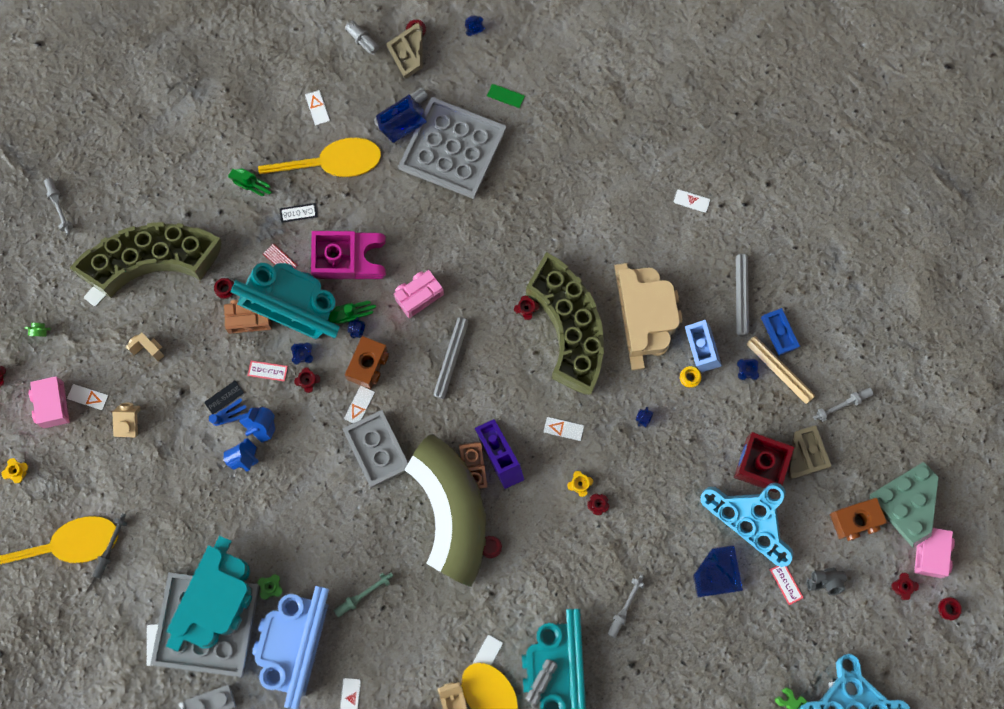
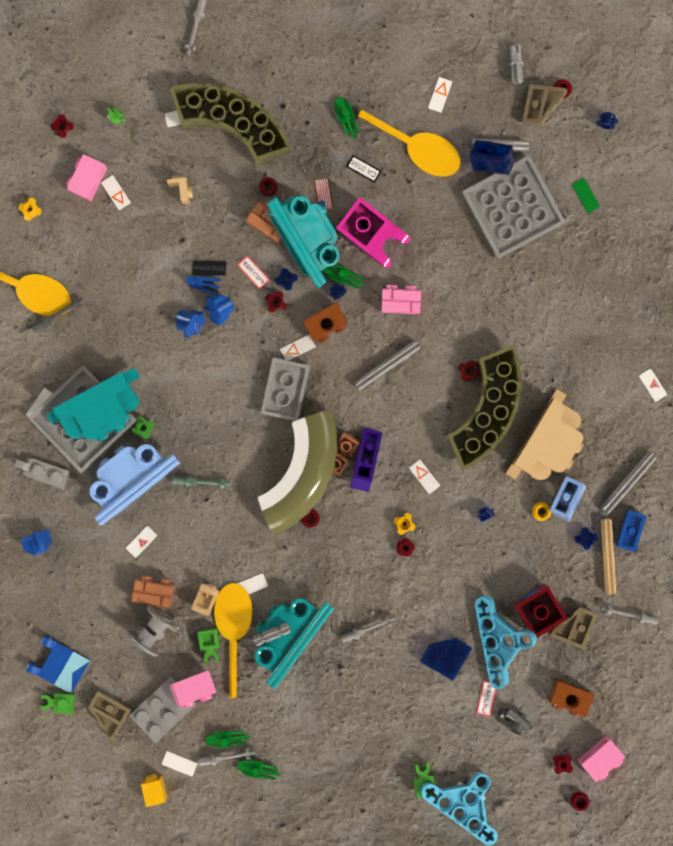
camera: 45 degrees right, 15 degrees up
(125, 420) = (130, 232): tan bracket -> none
(910, 503) = (614, 716): sand green plate -> none

